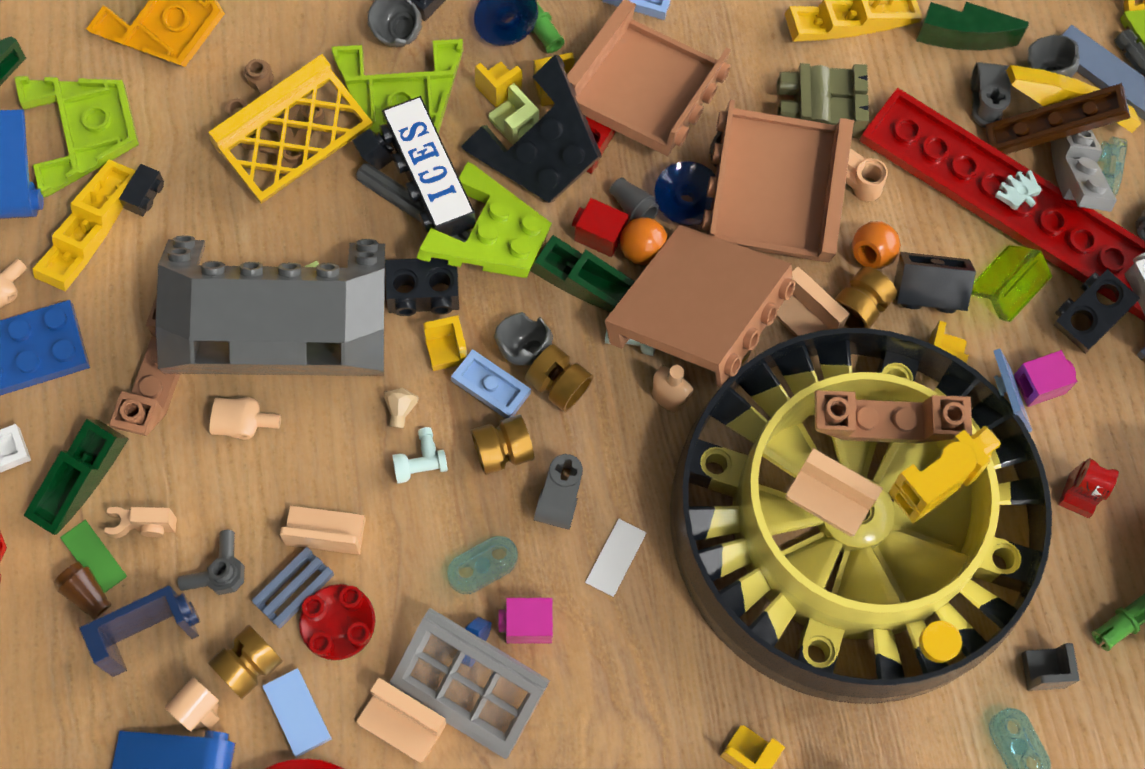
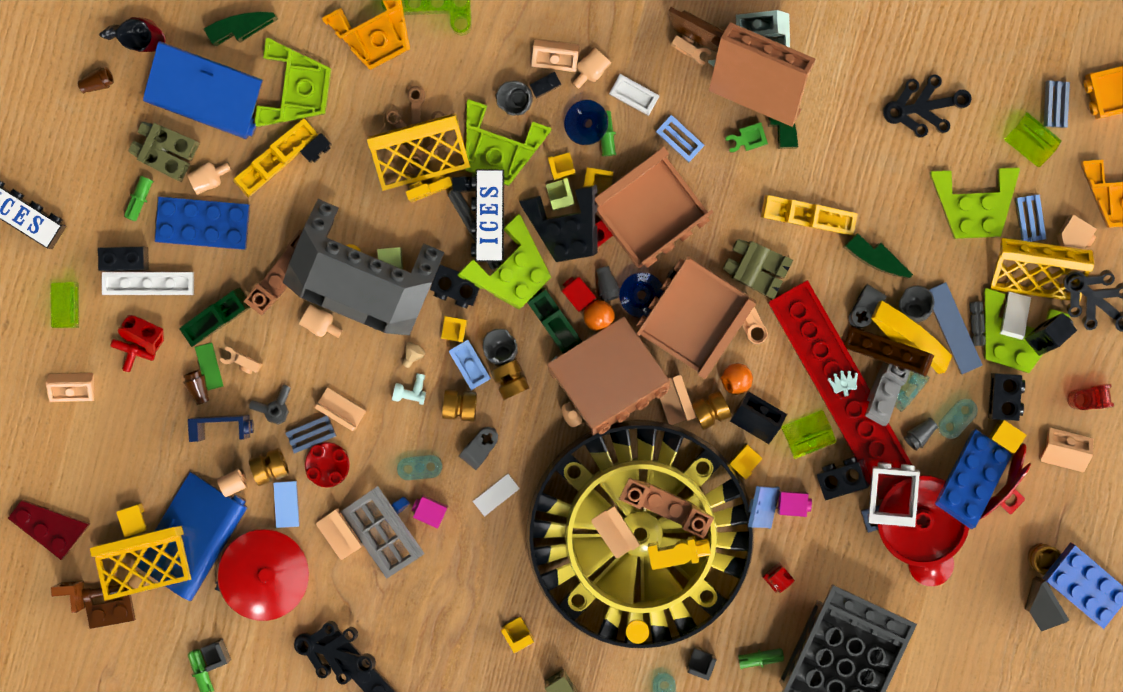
camera: 30 degrees right, 20 degrees up
(321, 174) = (420, 190): none -> yellow plate

